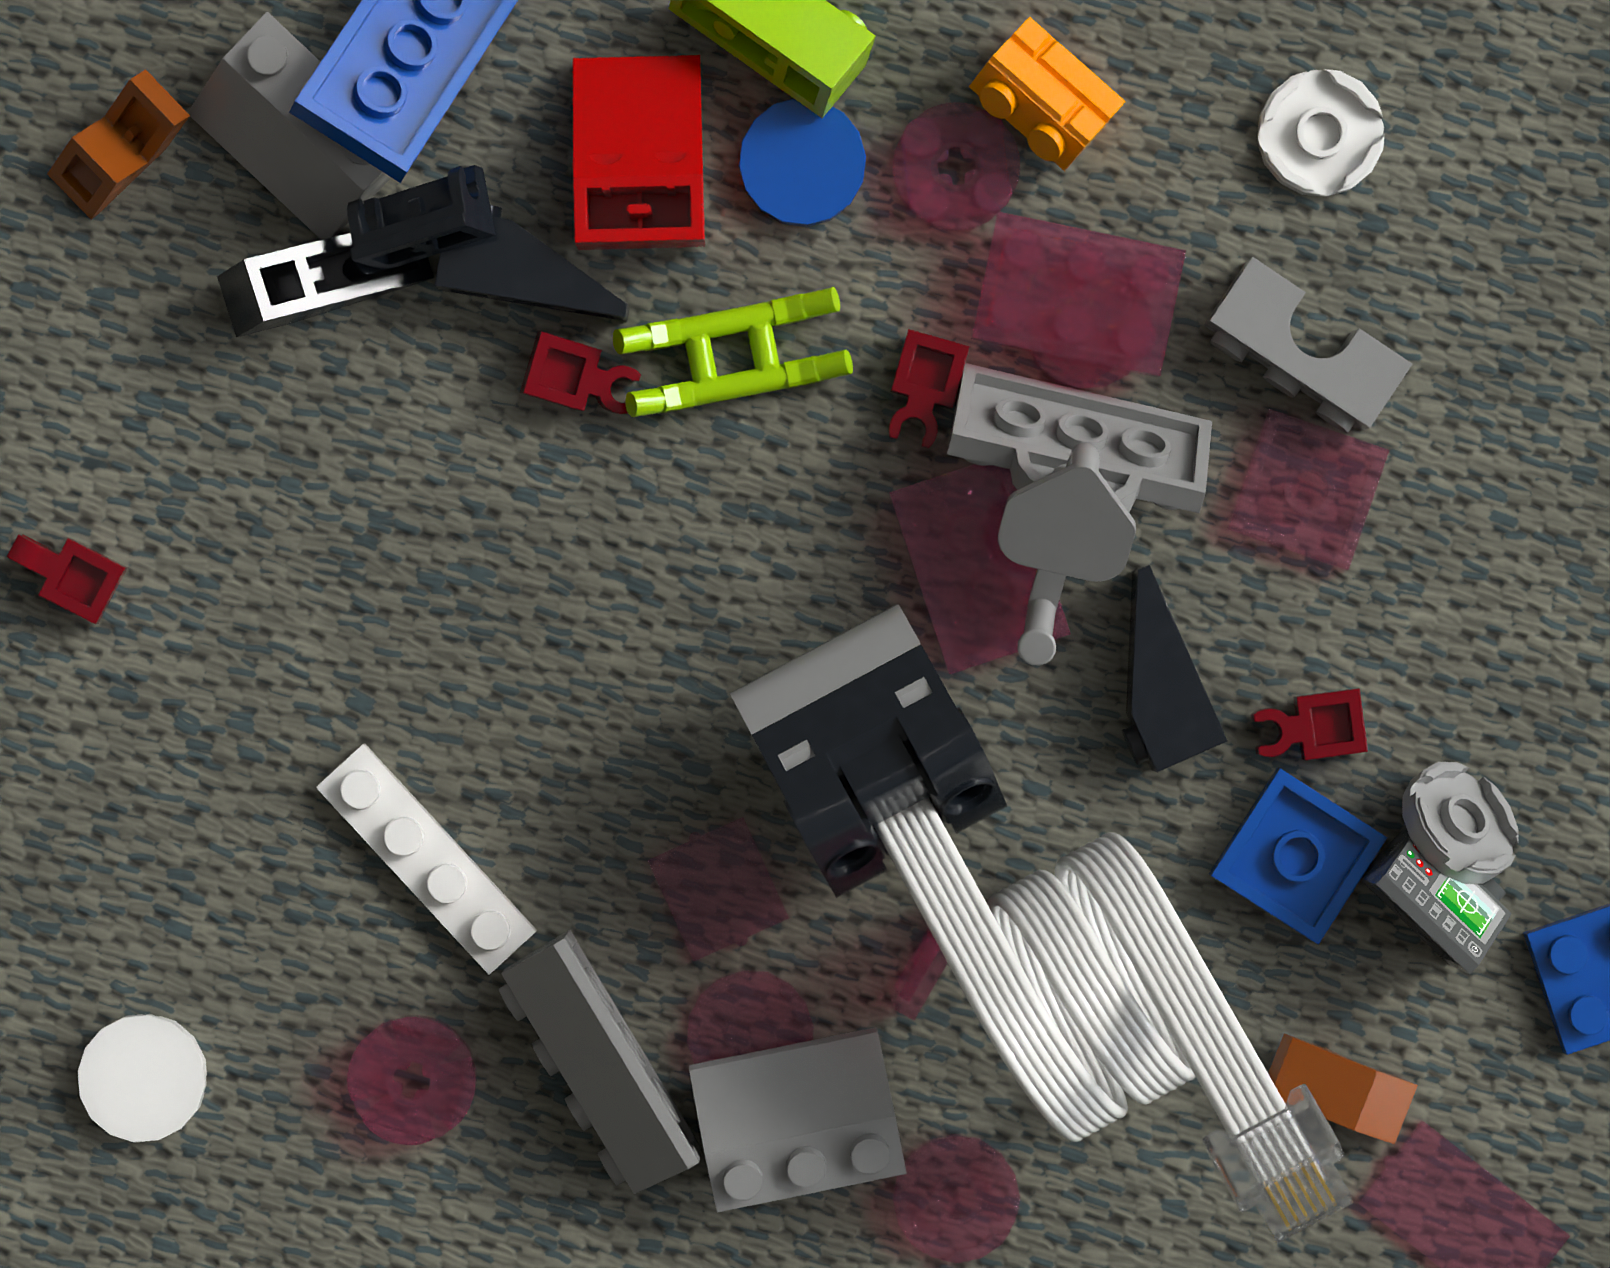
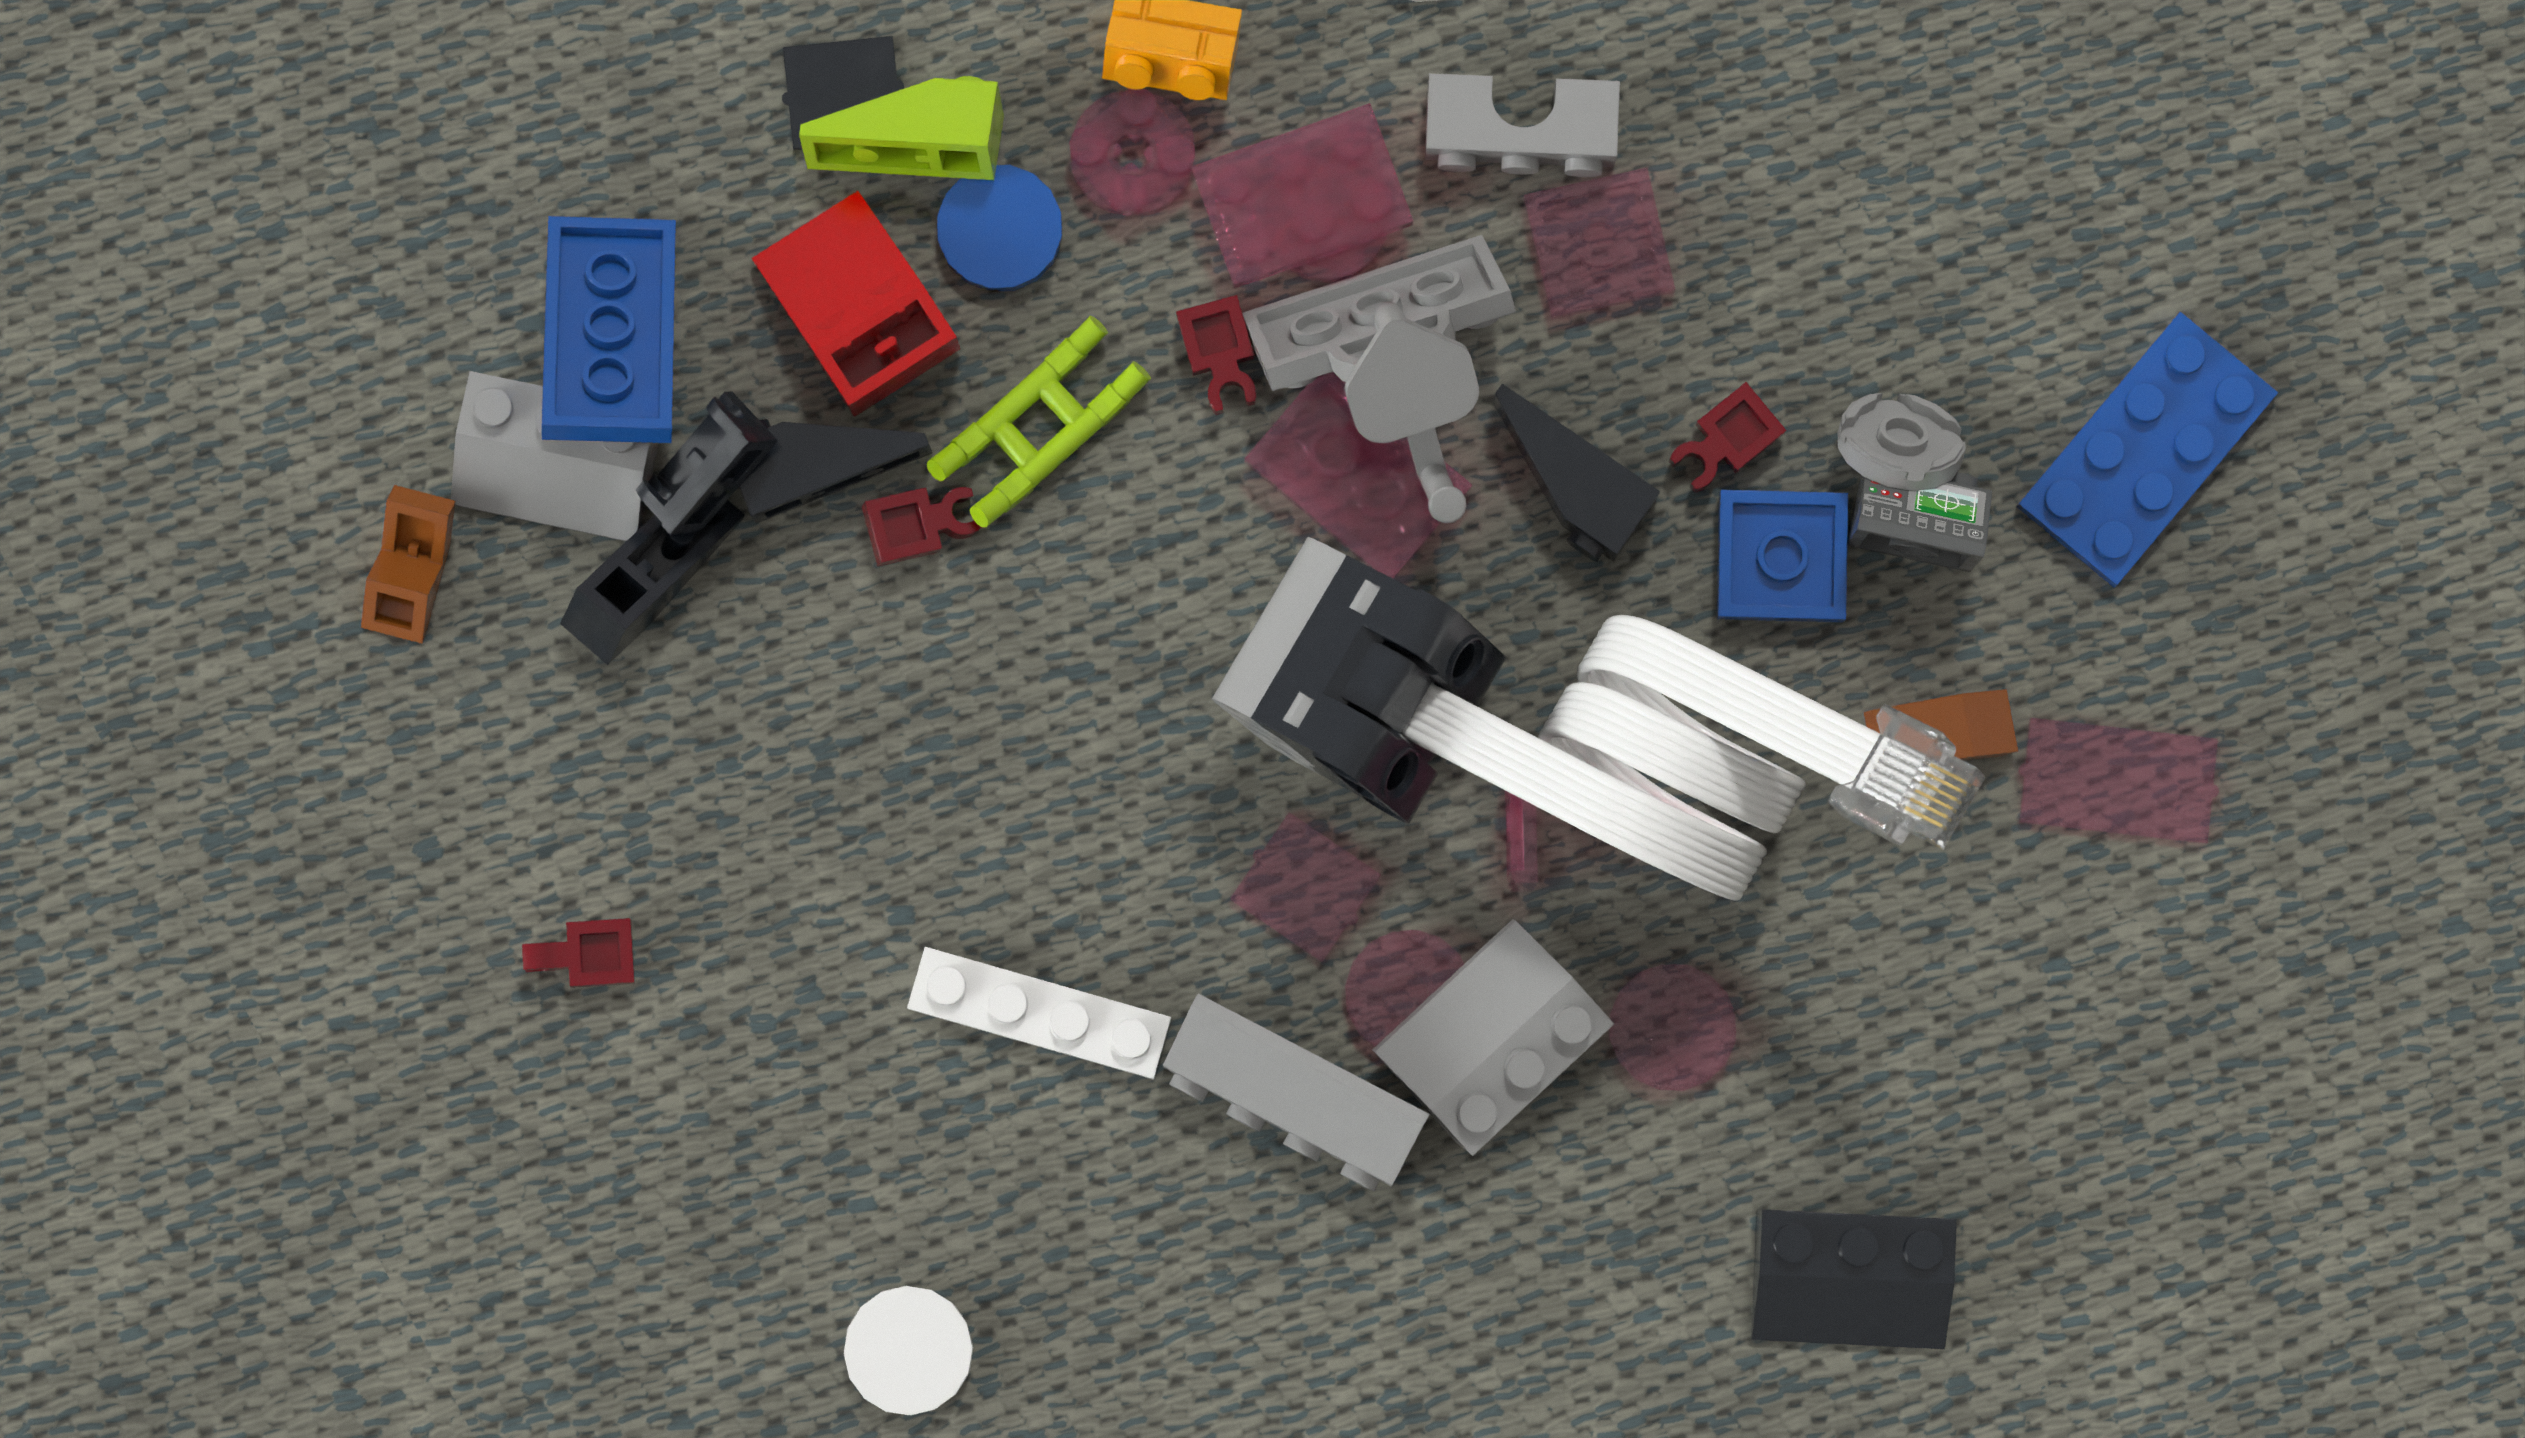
camera: 25 degrees left, 5 degrees down
(380, 1098) = (1161, 1177): clear pink plate -> none

